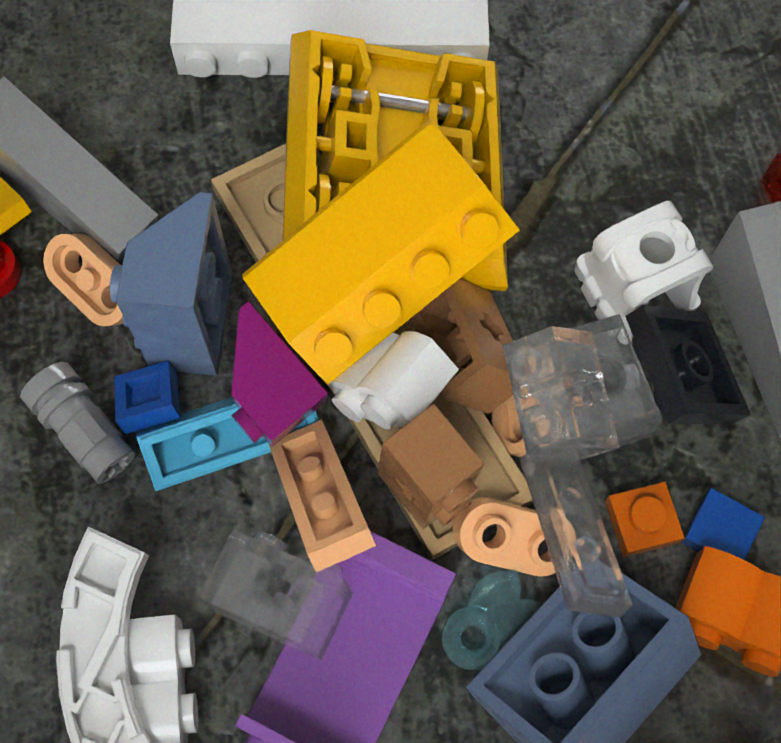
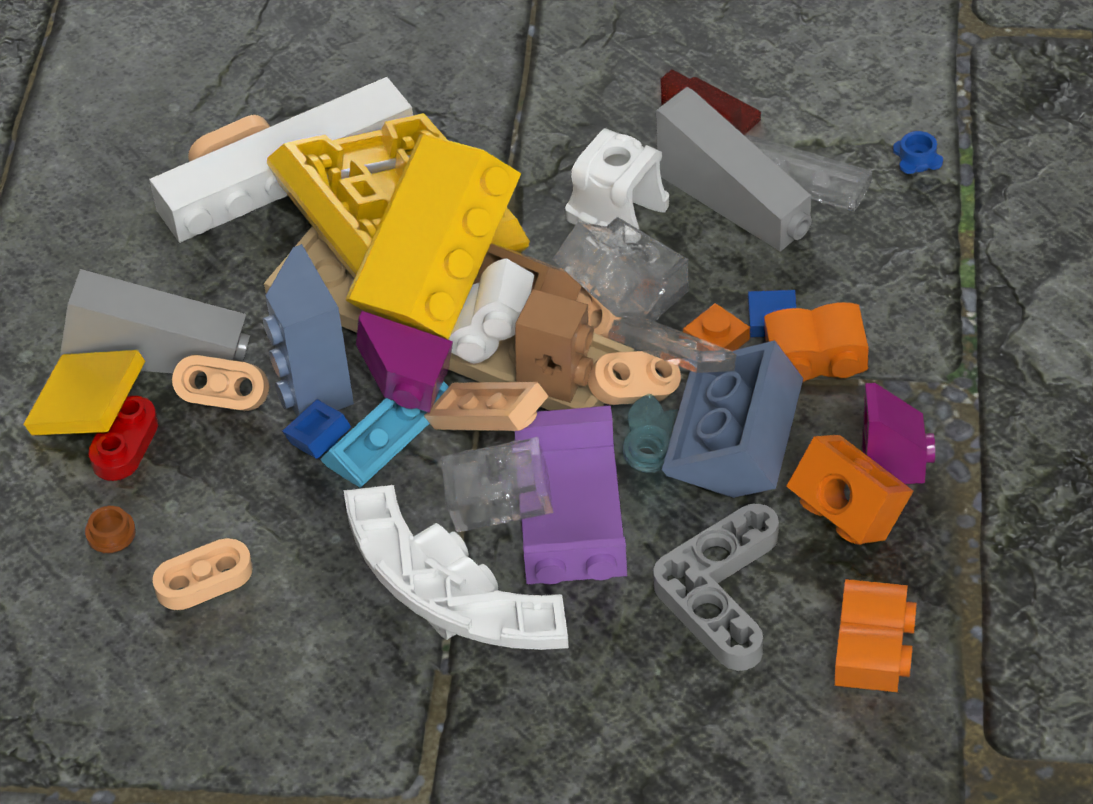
camera: 25 degrees left, 20 degrees down
(81, 426) = (277, 466): light grey axle -> none
(686, 366) = (684, 226): black plate -> none

